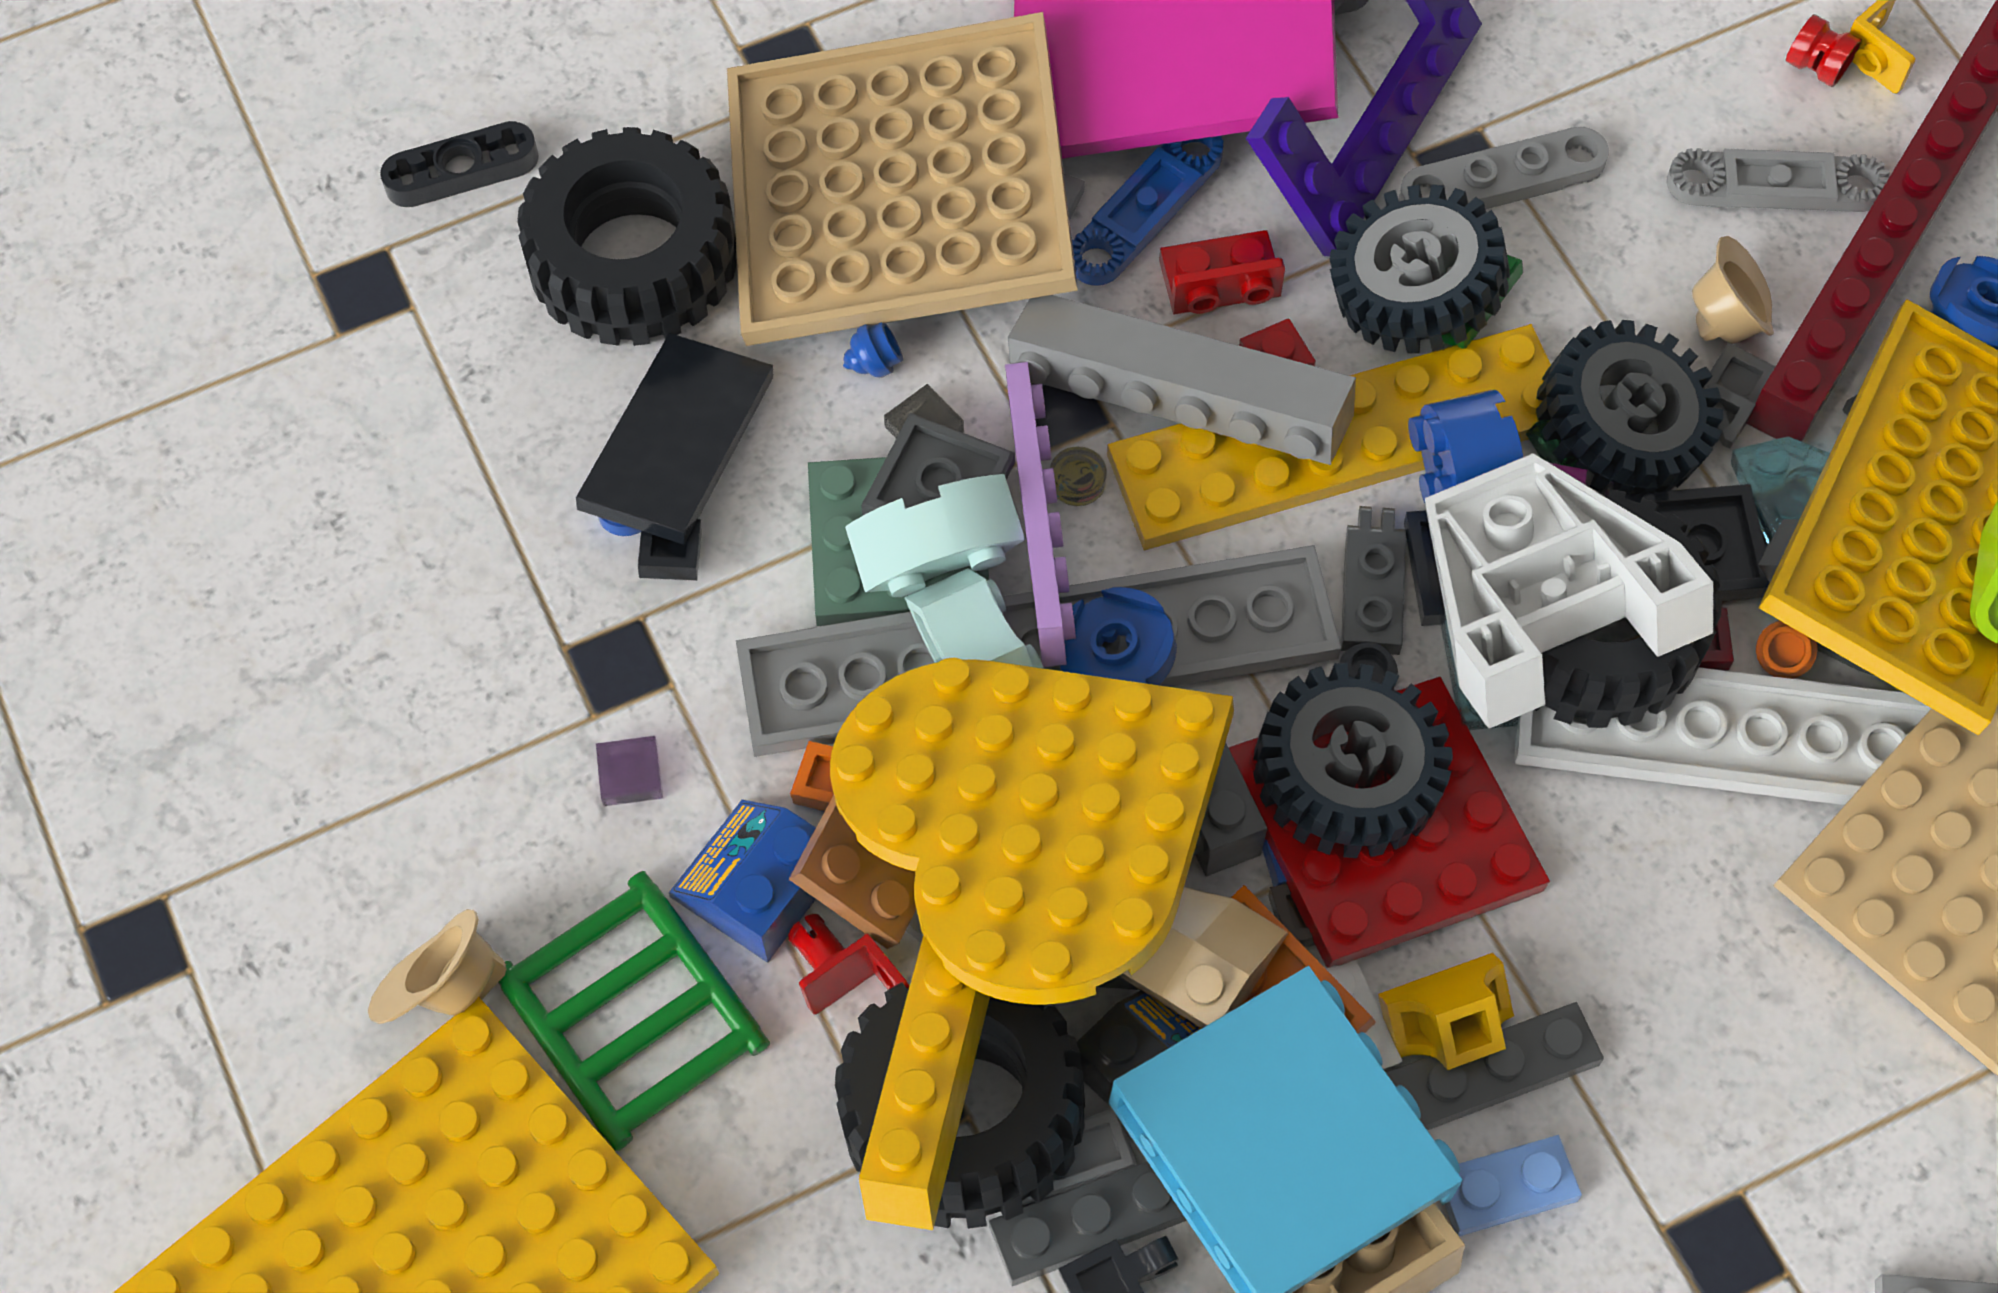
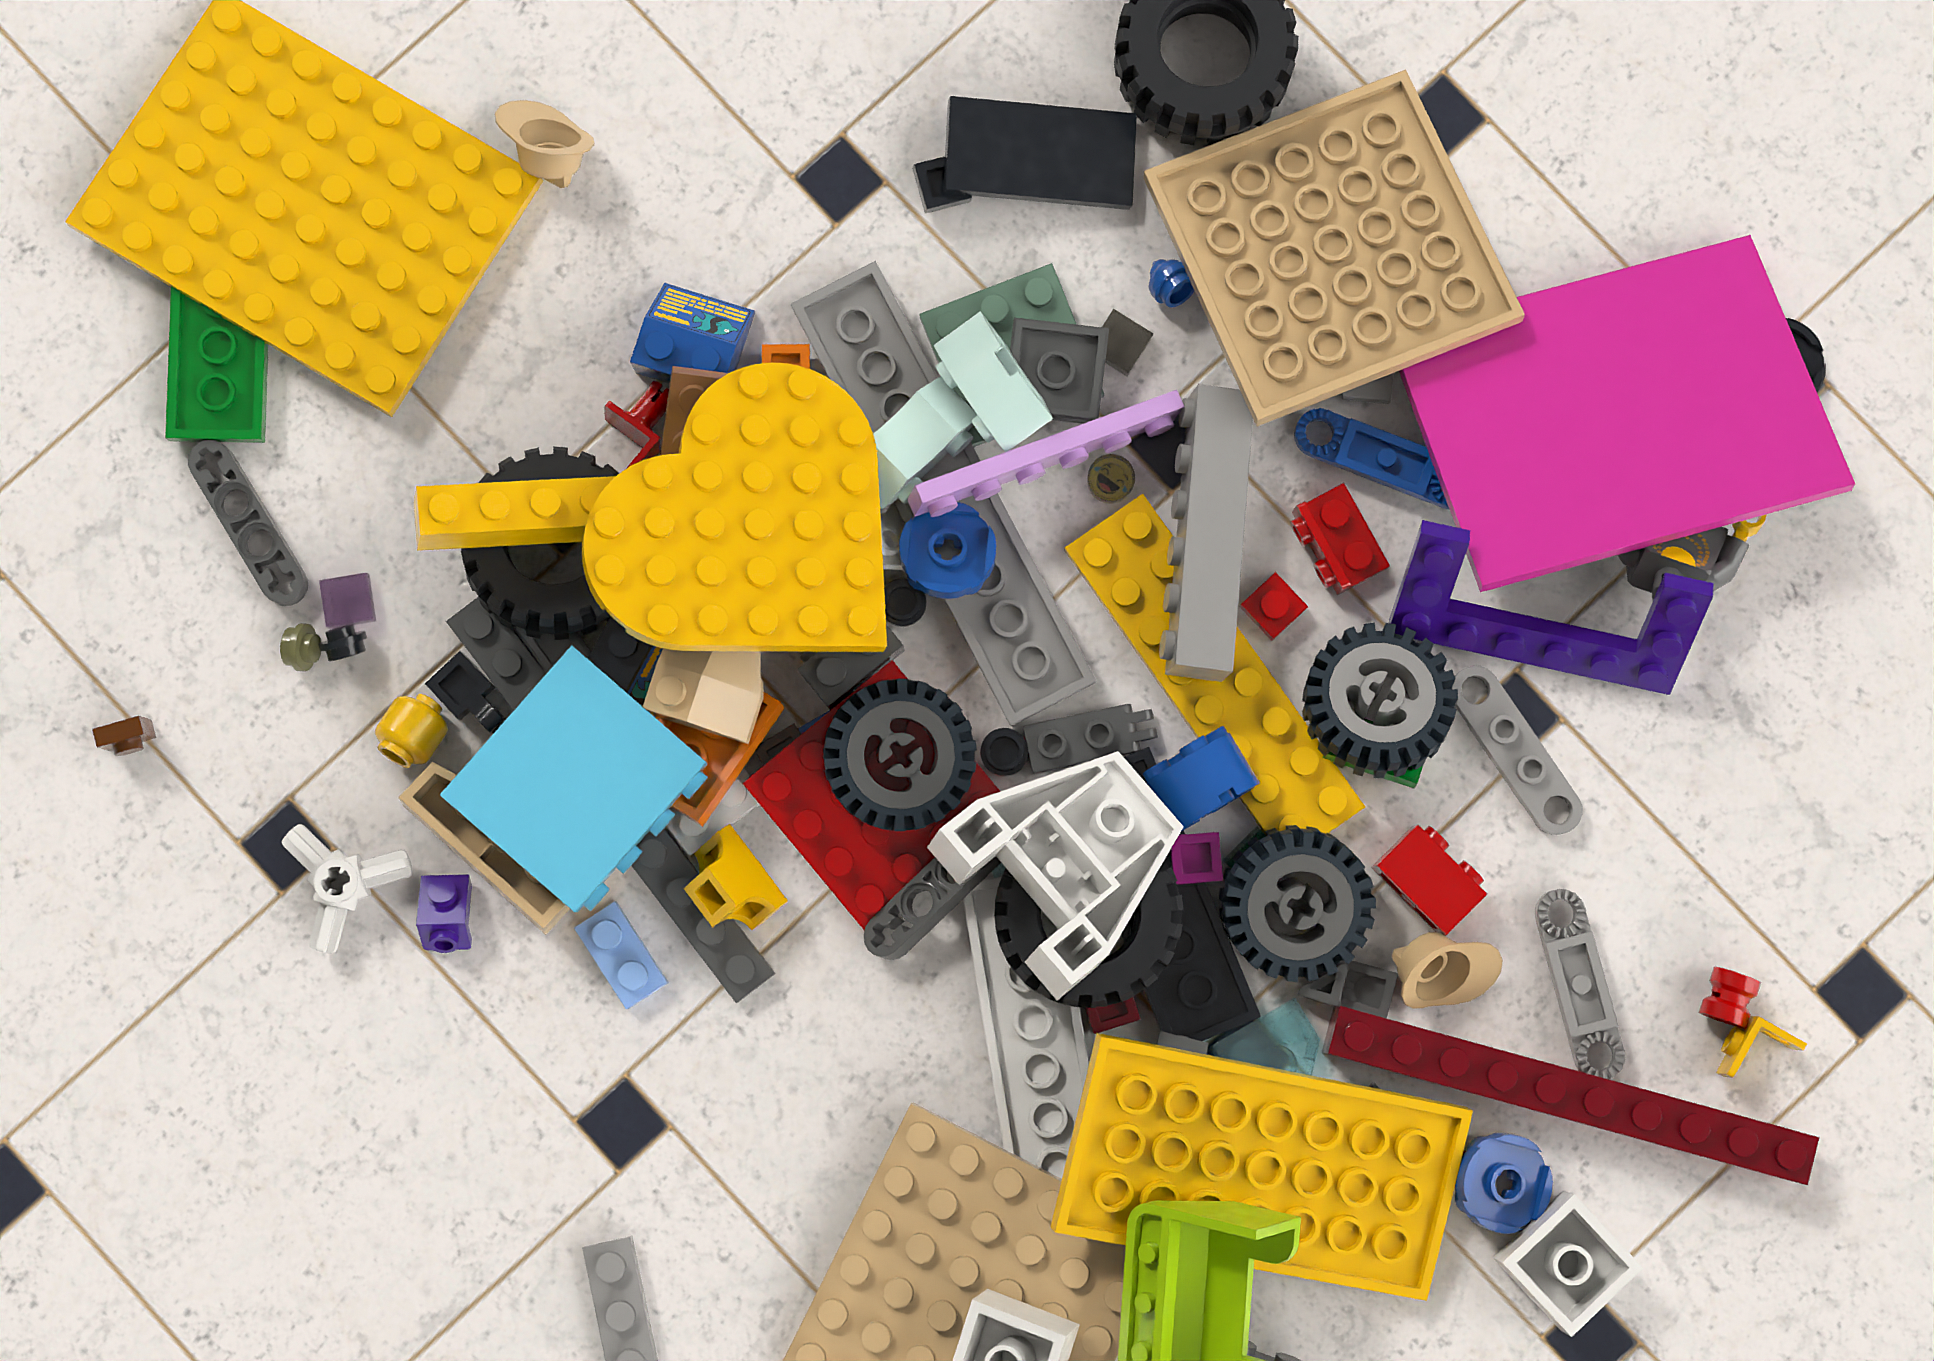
camera: 75 degrees right, 20 degrees up
(584, 1075) = (599, 338): green bar -> none
(629, 771) = (752, 219): clear purple tile -> none
(1513, 778) = (945, 899): none -> dark grey beam
(1633, 280) = (1430, 878): none -> red brick

